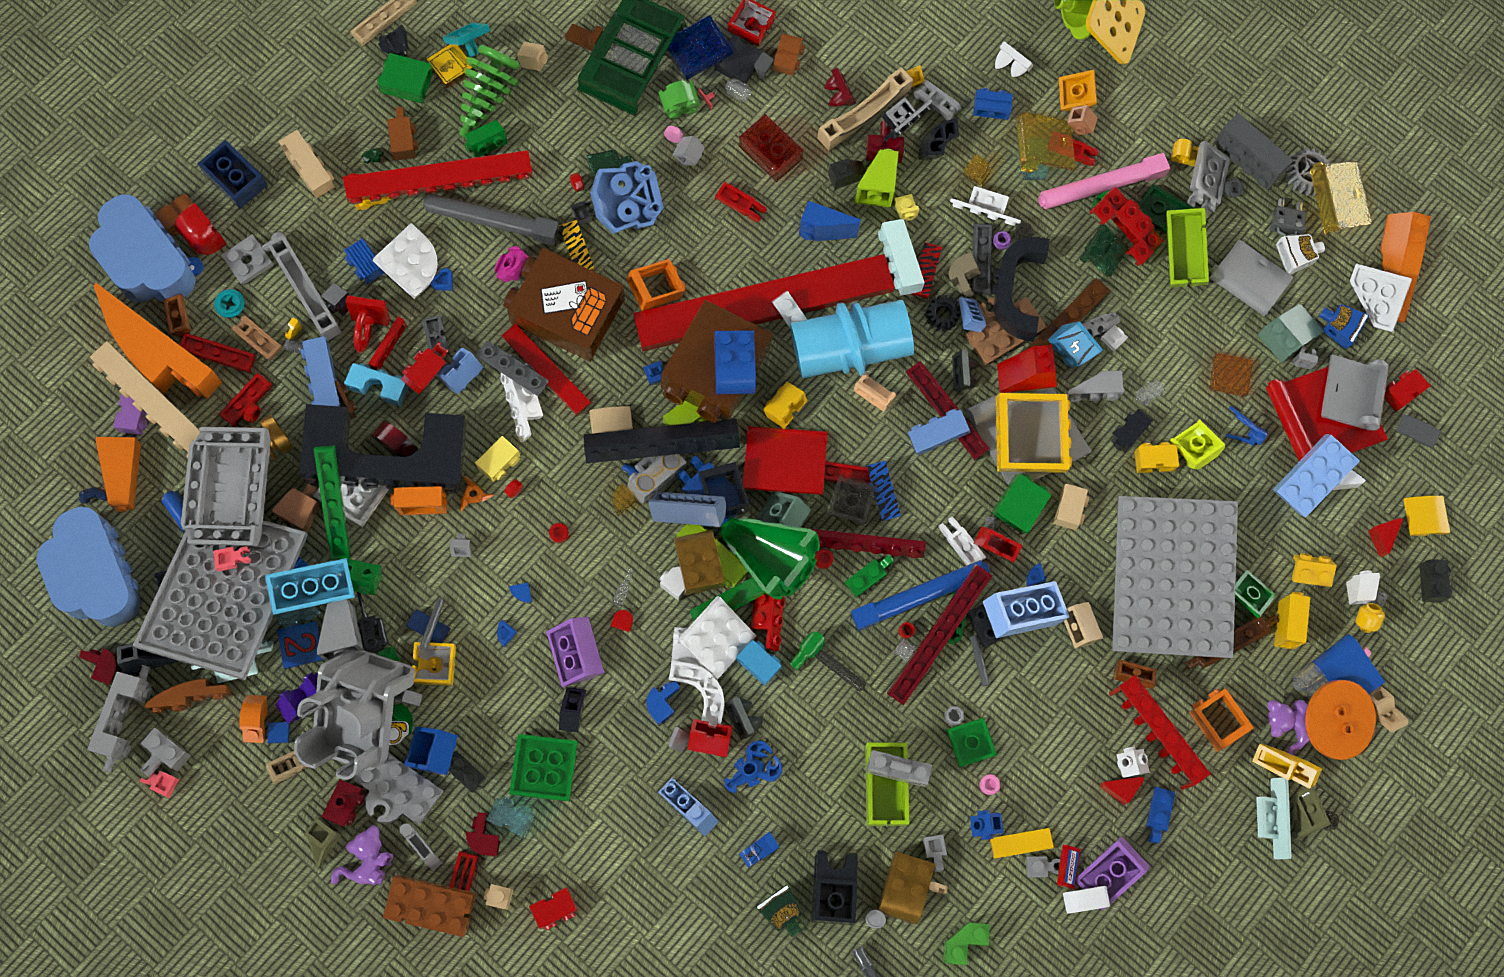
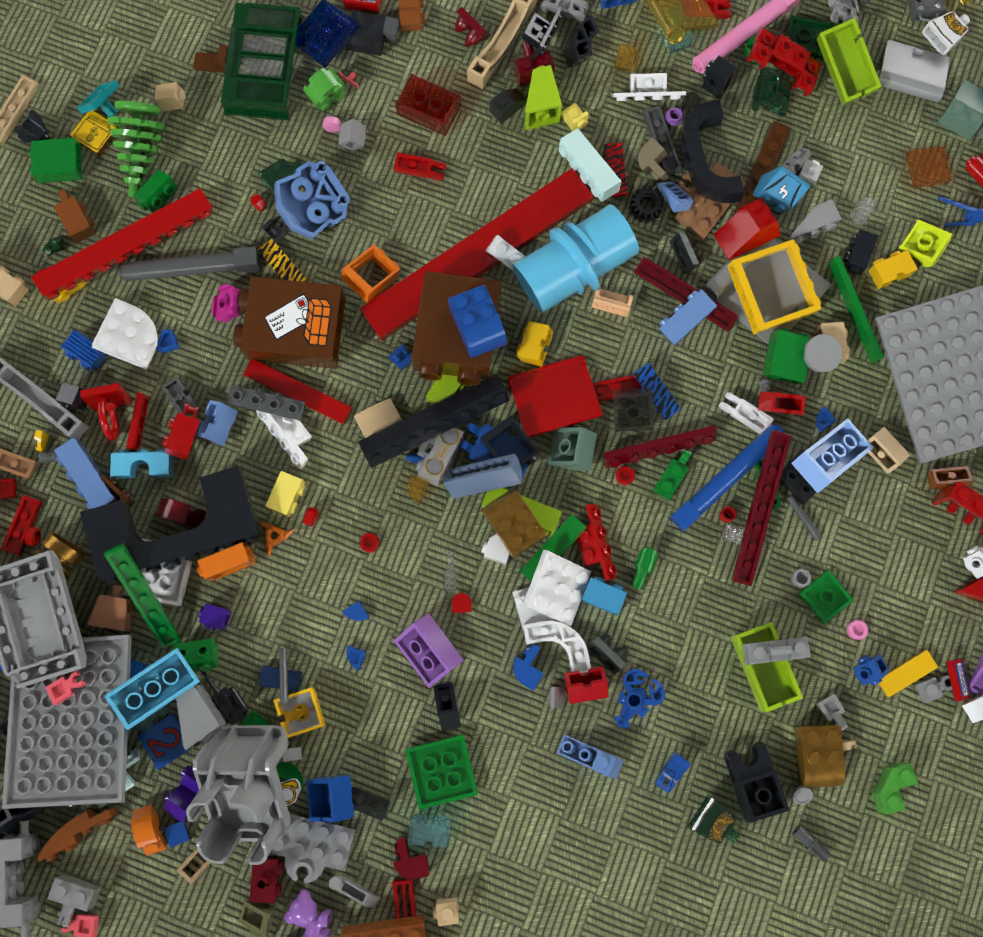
camera: 15 degrees left, 5 degrees up
(389, 547) = (214, 617): none -> dark purple brick
(460, 547) = (282, 590): light grey tile -> none
(549, 912) = (498, 908): red brick -> none
(738, 90) = (376, 61): clear brick -> none
(772, 553) = (579, 489): green cone -> none
(827, 224) = (508, 158): blue slope -> none
(840, 670) = (681, 574): clear smoke axle -> none
(1054, 511) = (822, 353): none -> light grey tile
(1057, 217) = (718, 76): none -> black brick
(1105, 483) = (855, 310): none -> green tile

